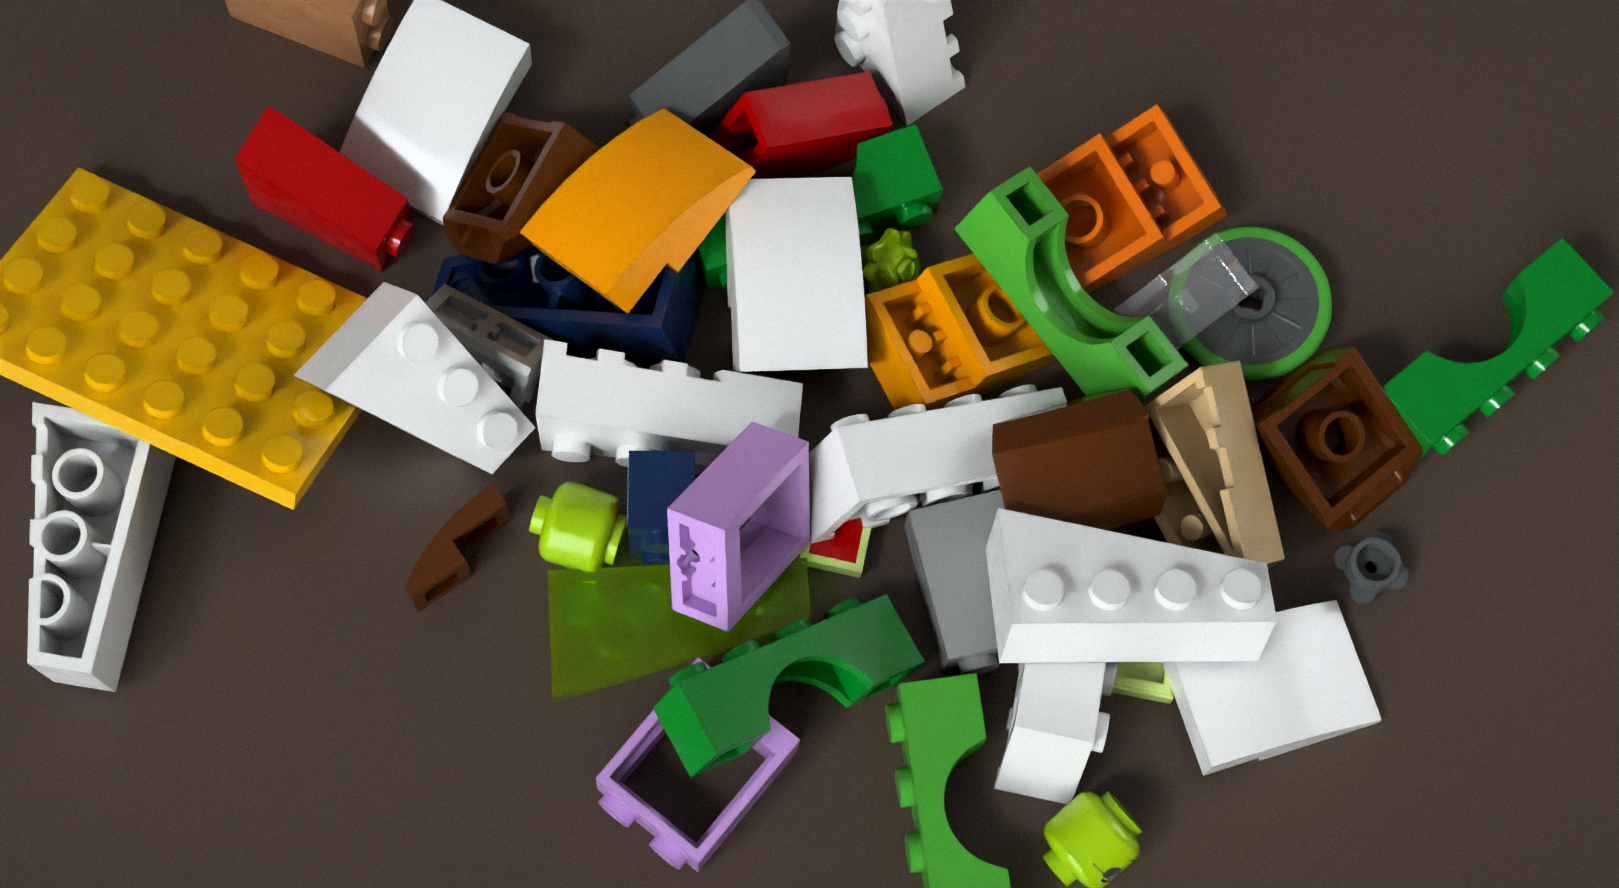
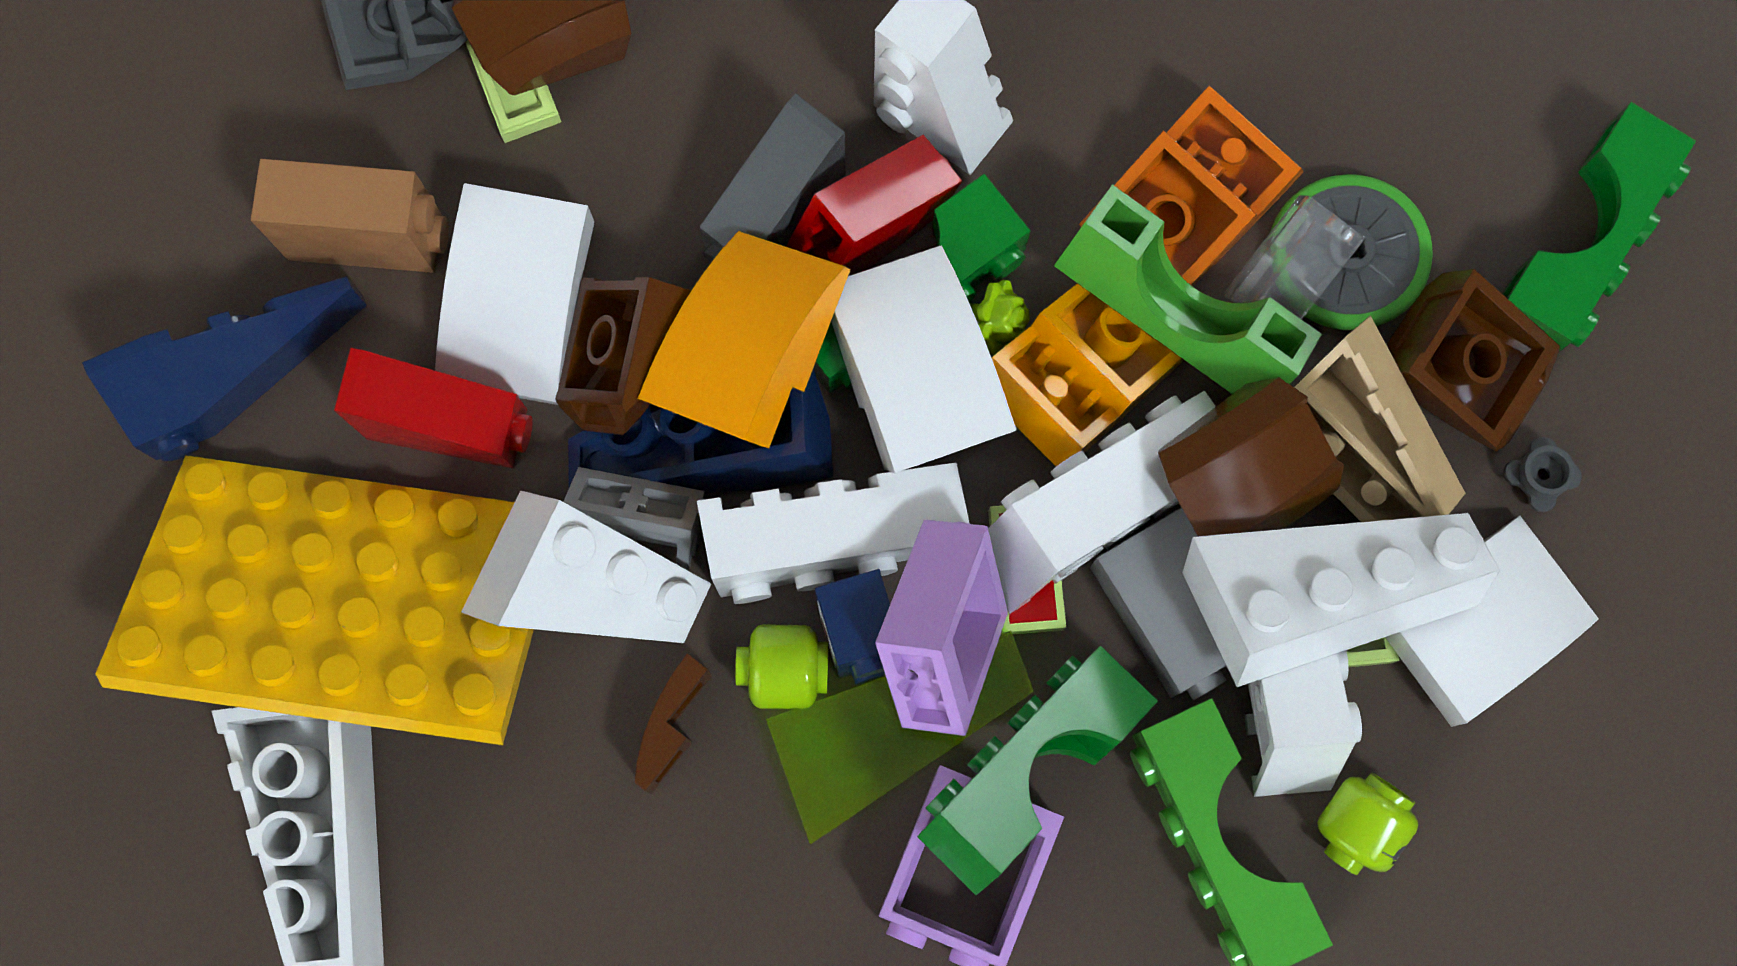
camera: 10 degrees left, 5 degrees up
(107, 103) = (194, 386): none -> dark blue wedge

